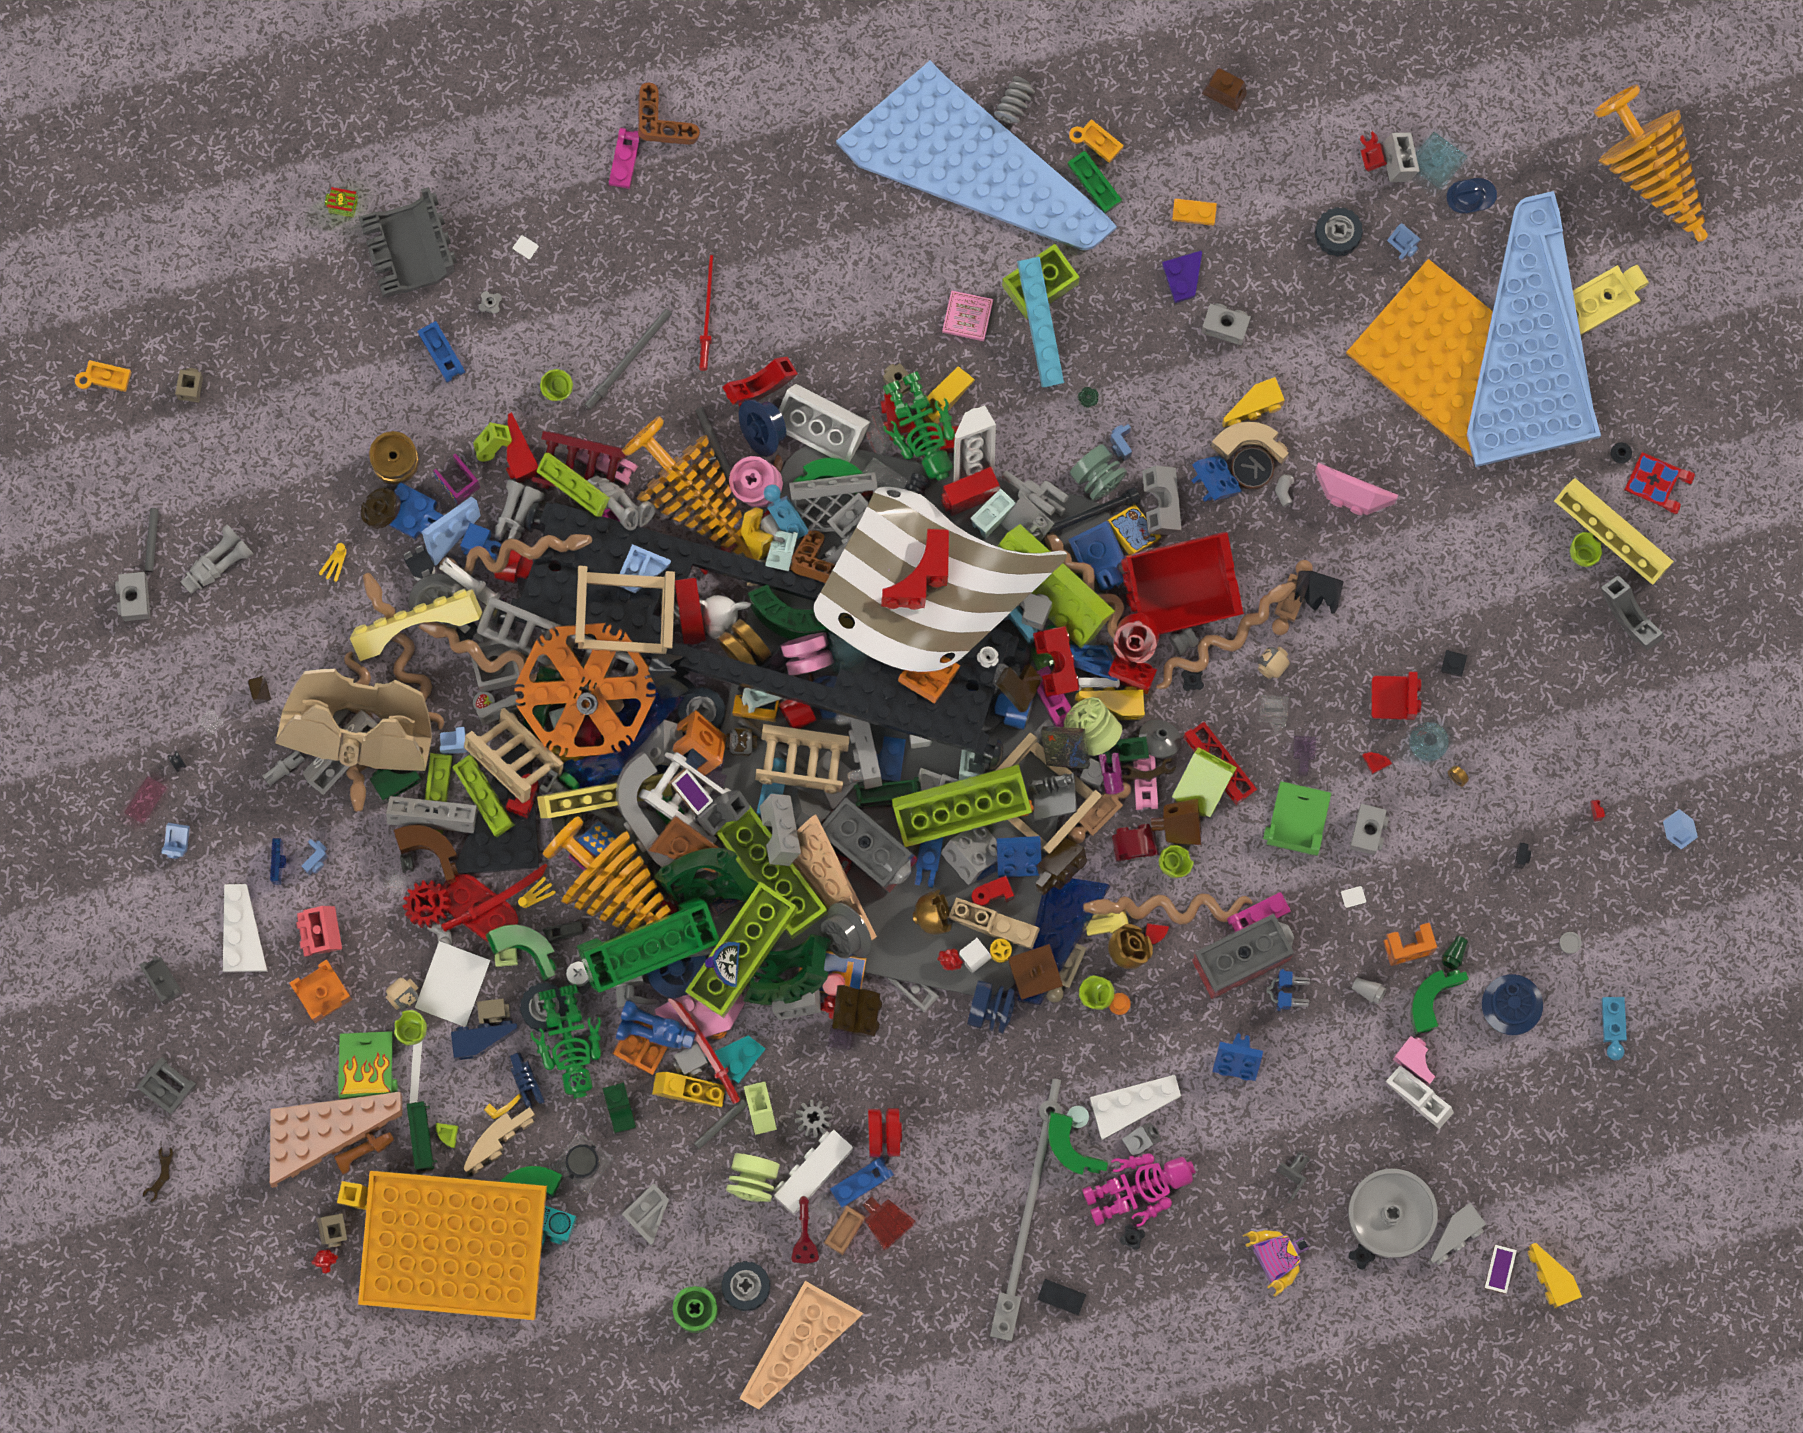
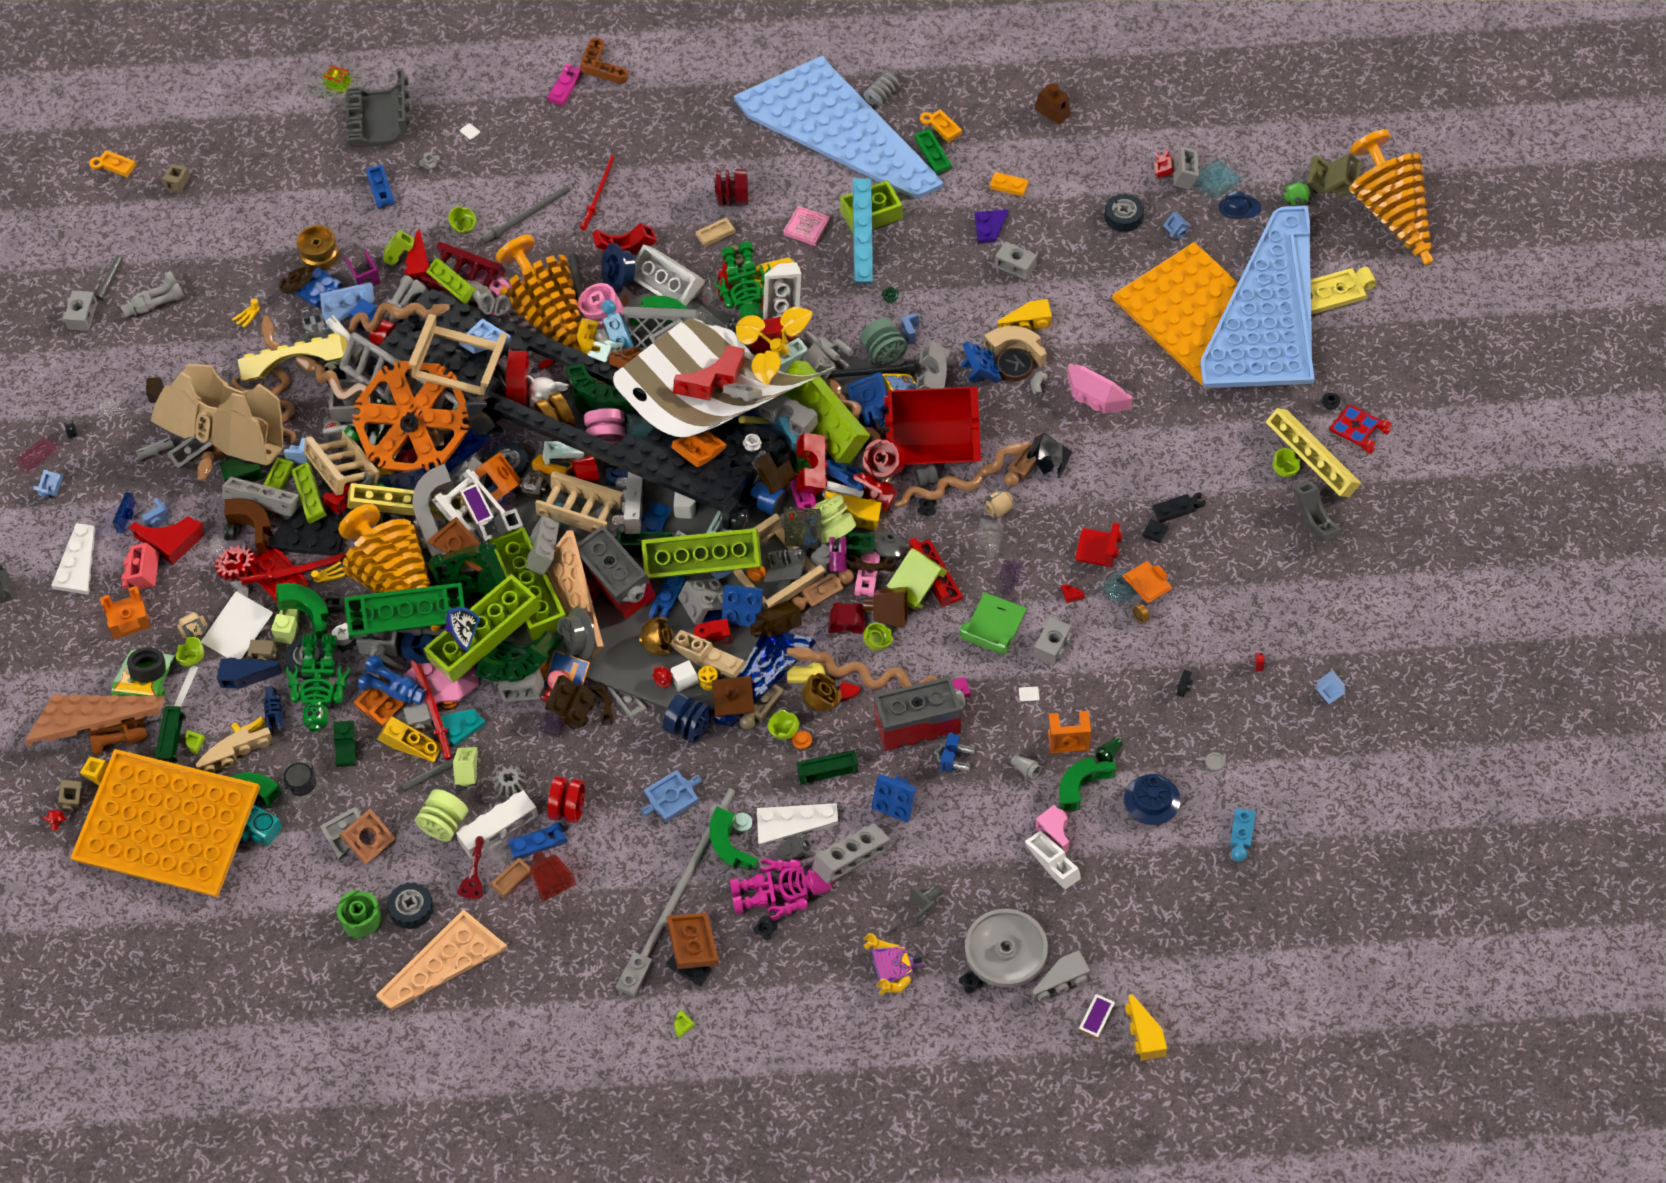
camera: 15 degrees right, 20 degrees down
(343, 888) = (172, 540): none -> red arch
(366, 1042) = (146, 674): none -> black tyre
(509, 977) = (284, 629): none -> yellowish green brick
(513, 712) = (351, 432): none -> green tile
(691, 1215) = (370, 822): none -> nougat piece
(862, 346) = (715, 232): none -> tan plate
(869, 283) = (732, 187): none -> dark red wheel
(894, 997) = (601, 692): none -> dark brown piece
(946, 503) = (750, 328): none -> yellow plant
(962, 593) = (742, 391): none -> light grey plate
(993, 1100) = (671, 796): none -> medium blue plate
(1060, 1270) = (692, 940): none -> dark orange plate
(1070, 1363) = (682, 1024): none -> lime tile
(1155, 1033) = (827, 767): none -> dark green container
(1190, 1164) = (850, 853): none -> light grey brick
(1458, 733) = (1148, 581): none -> orange piece
(1472, 627) = (1177, 507): none -> black plate
(1536, 169) = (1297, 194): none -> bright green head
(1575, 135) = (1334, 176): none -> olive piece

